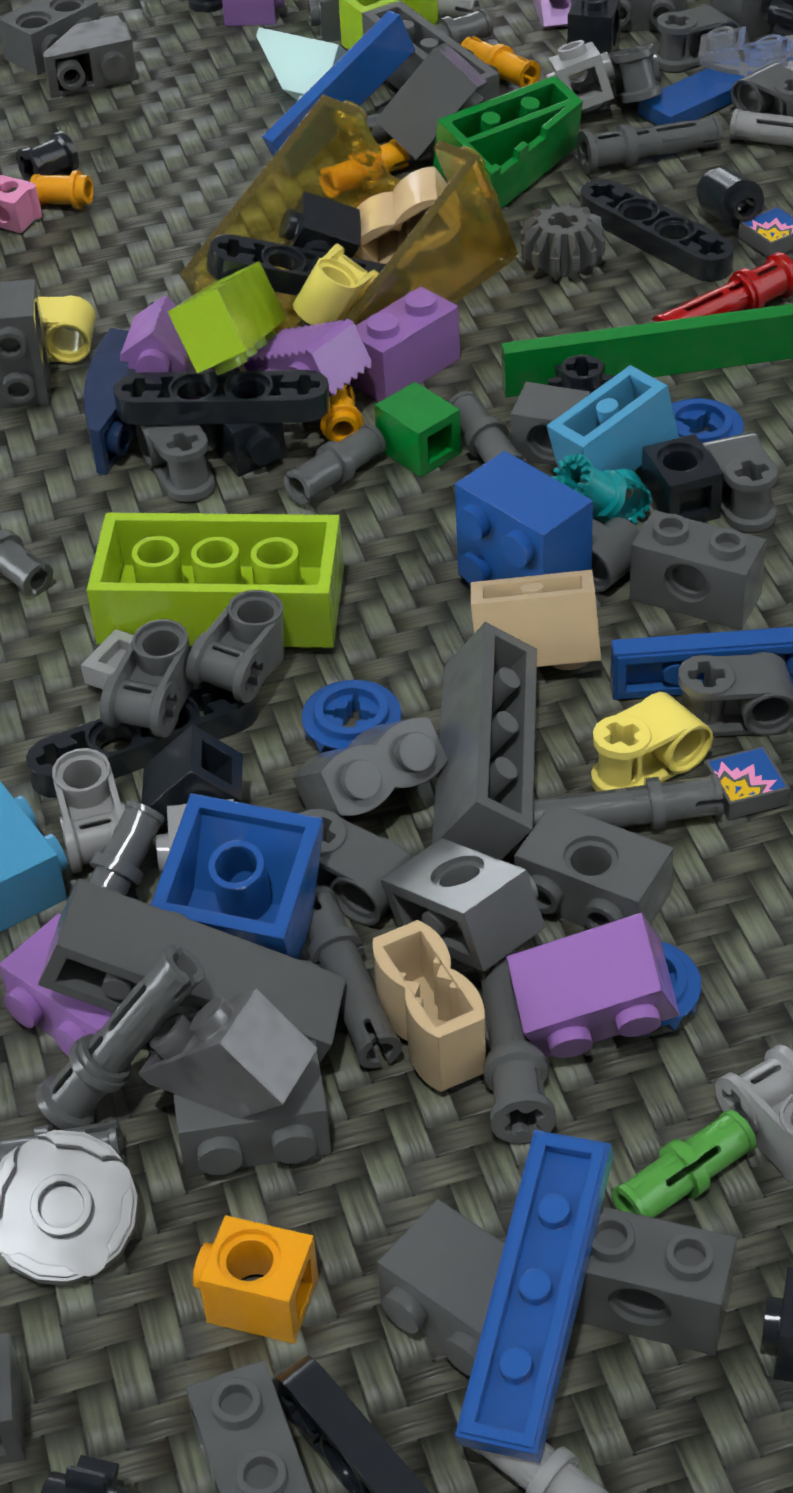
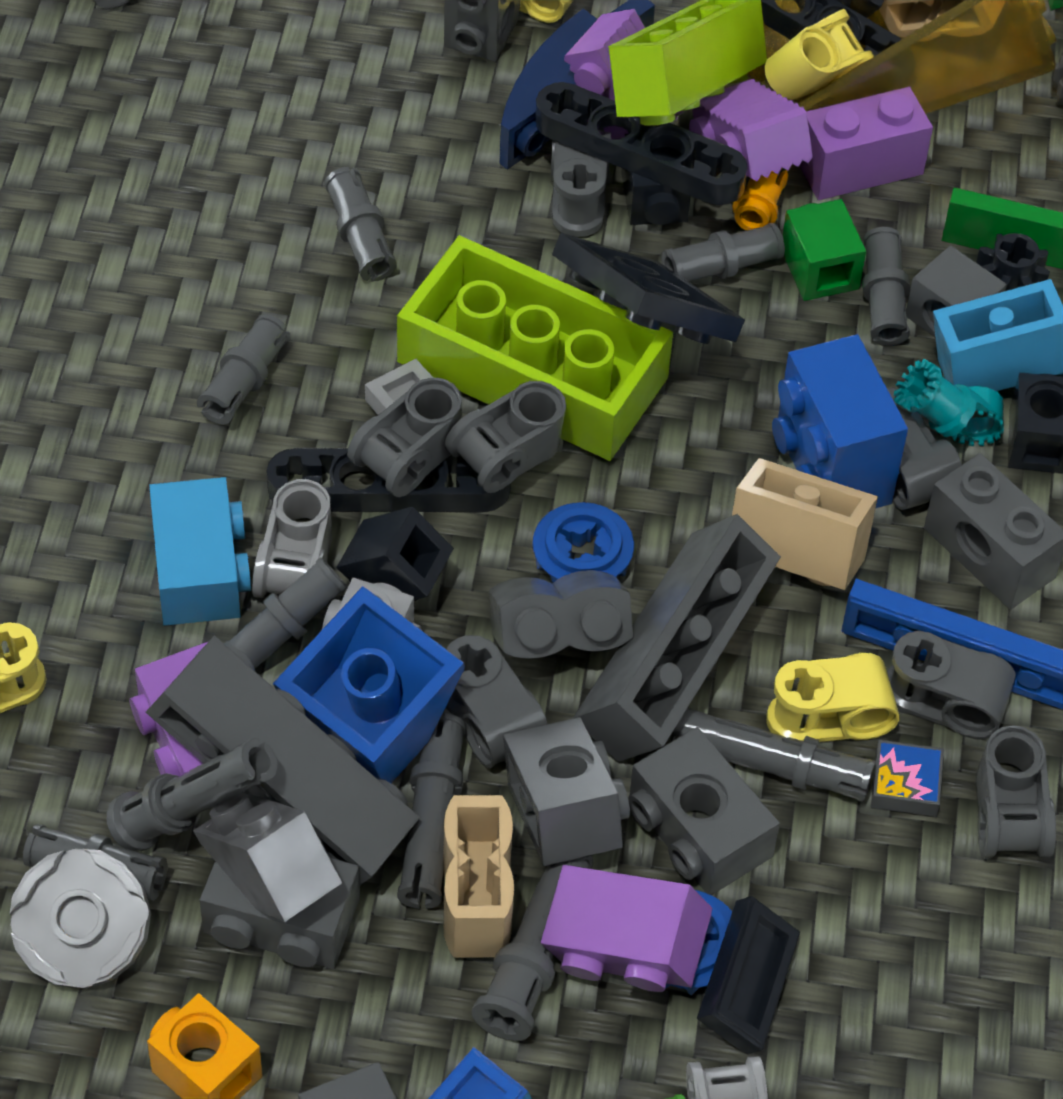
camera: 20 degrees right, 10 degrees up
(297, 492) = (647, 290): none -> black plate
(720, 988) = (748, 975): none -> black tile

